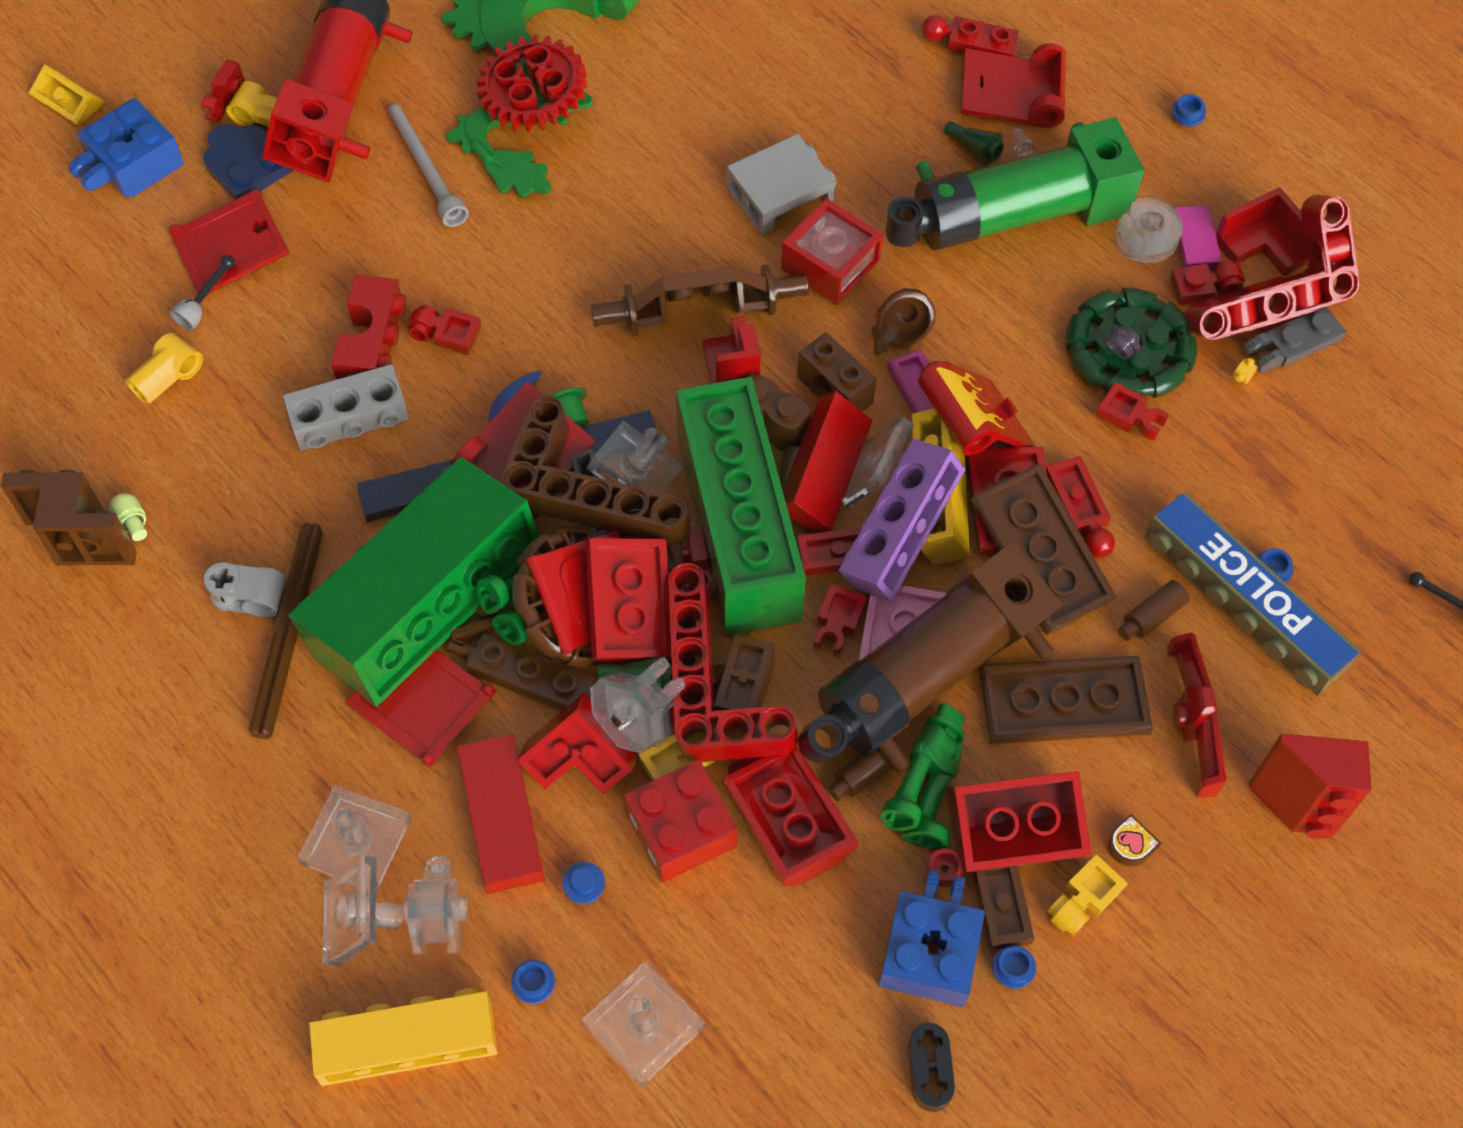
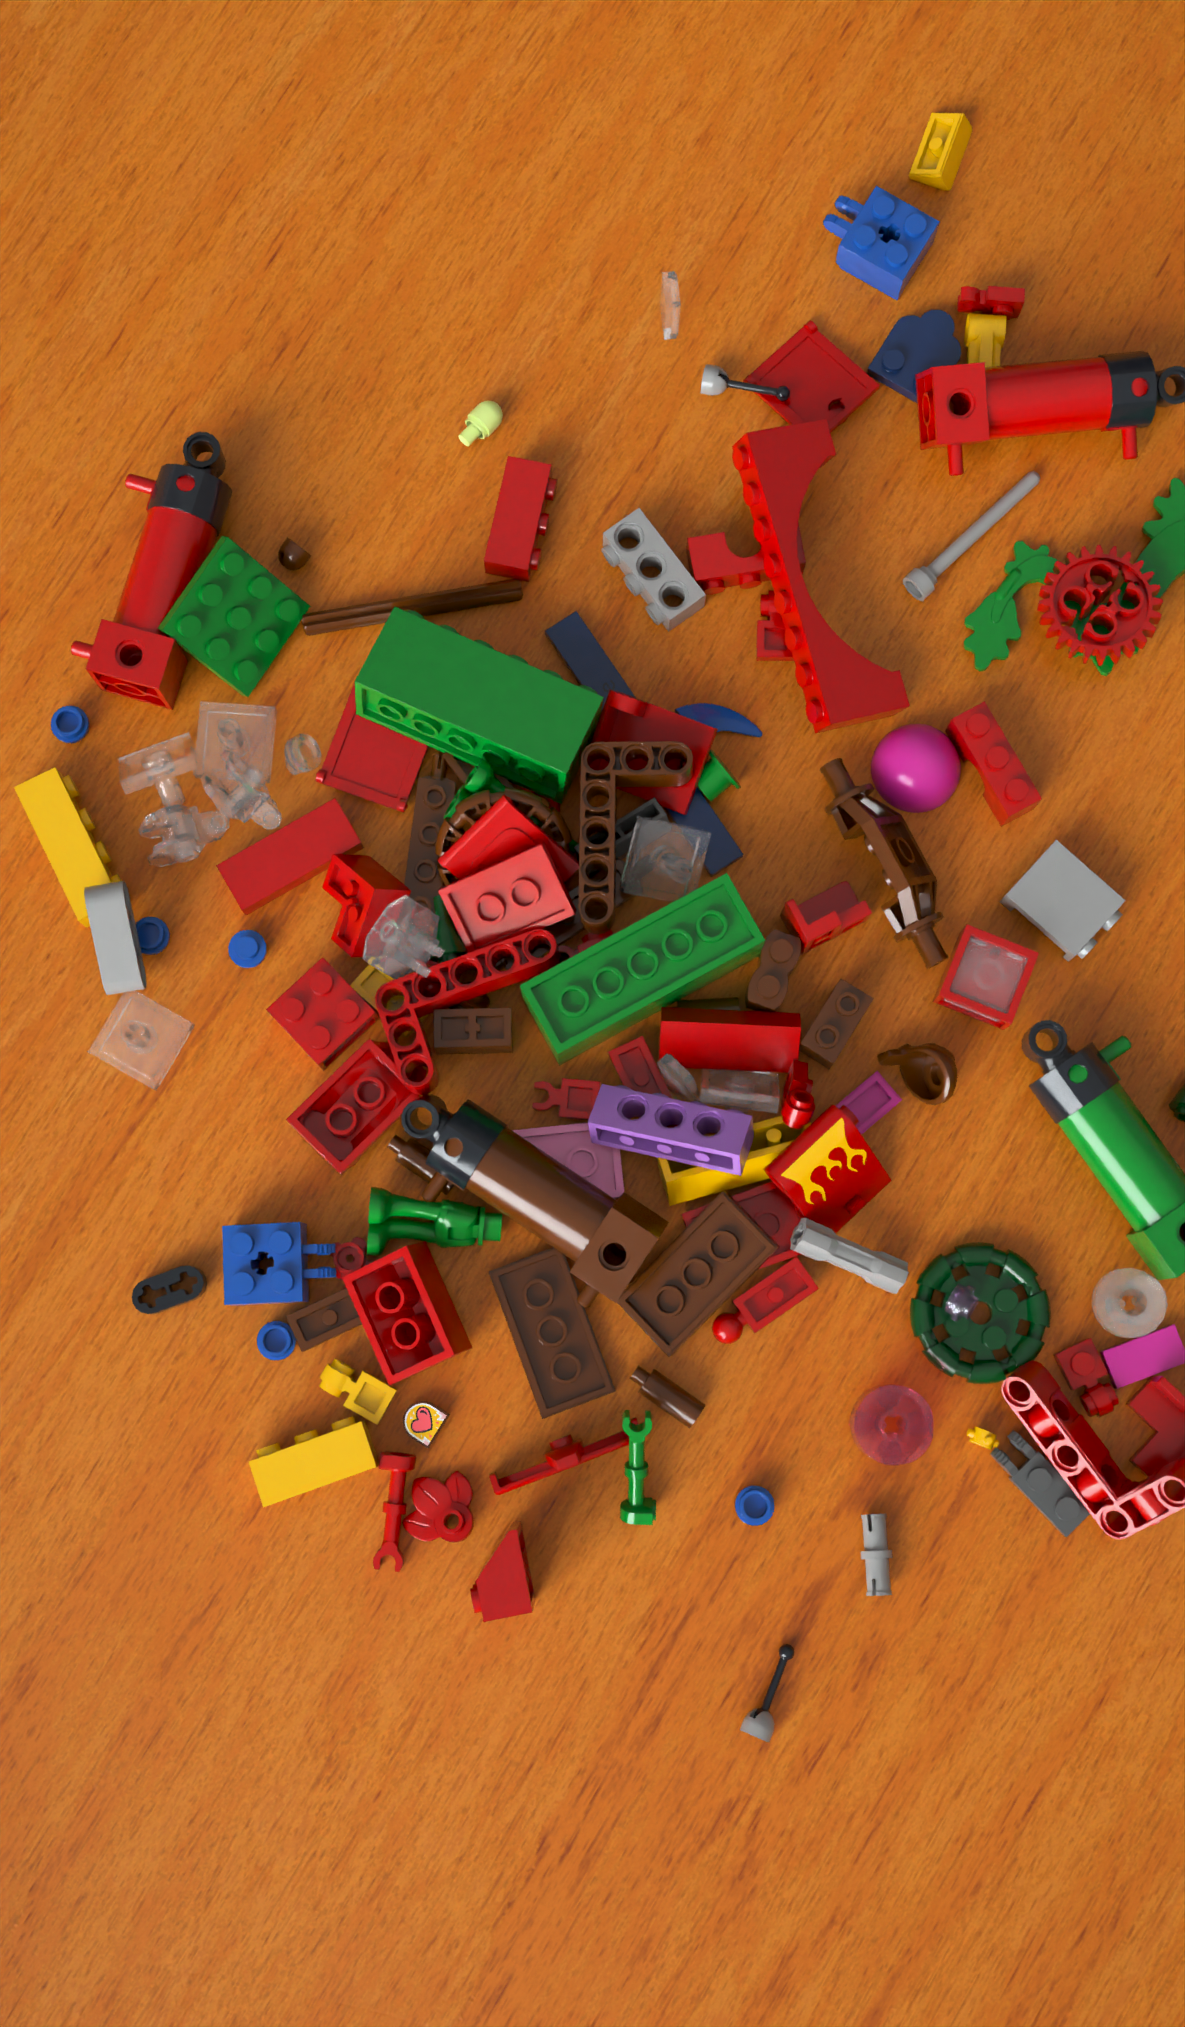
camera: 75 degrees right, 20 degrees up
(69, 518) = (451, 373): reddish brown bracket -> none
(99, 318) = (670, 305): none -> clear tile
(170, 361) = (652, 389): yellow piece -> none
(180, 723) = (292, 555): none -> reddish brown hinge
(211, 887) = (178, 535): none -> red piece
(223, 787) = (234, 616): none -> green plate
(243, 505) = (520, 519): none -> red brick
(246, 590) = (436, 560): light grey piece -> none
(263, 1006) = (70, 724): none -> blue plate
(309, 268) = (835, 679): none -> red arch
(396, 769) = (302, 754): none -> clear tile
(416, 829) = (242, 792): none -> clear hinge
(528, 1003) = (115, 937): none -> light grey beam
(617, 196) = (1005, 780): none -> red arch
(617, 257) = (916, 768): none -> dark pink piece
(855, 502) = (678, 1080): none -> clear tile
(885, 412) = (796, 1098): none -> red plate
(1043, 434) = (873, 1266): none -> light grey axle
(1128, 408) = (895, 1323): red plate -> none
(1154, 959) = (313, 1461): none -> yellow brick
(1216, 894) = (399, 1465): none -> red piece
(1221, 429) = (914, 1424): none -> clear pink brick
(1221, 853) = (435, 1505): none -> red plate
(1251, 594) = (713, 1487): brick -> none
(1259, 664) = (637, 1508): none -> green piece
(1338, 479) = (876, 1554): none -> light grey pin

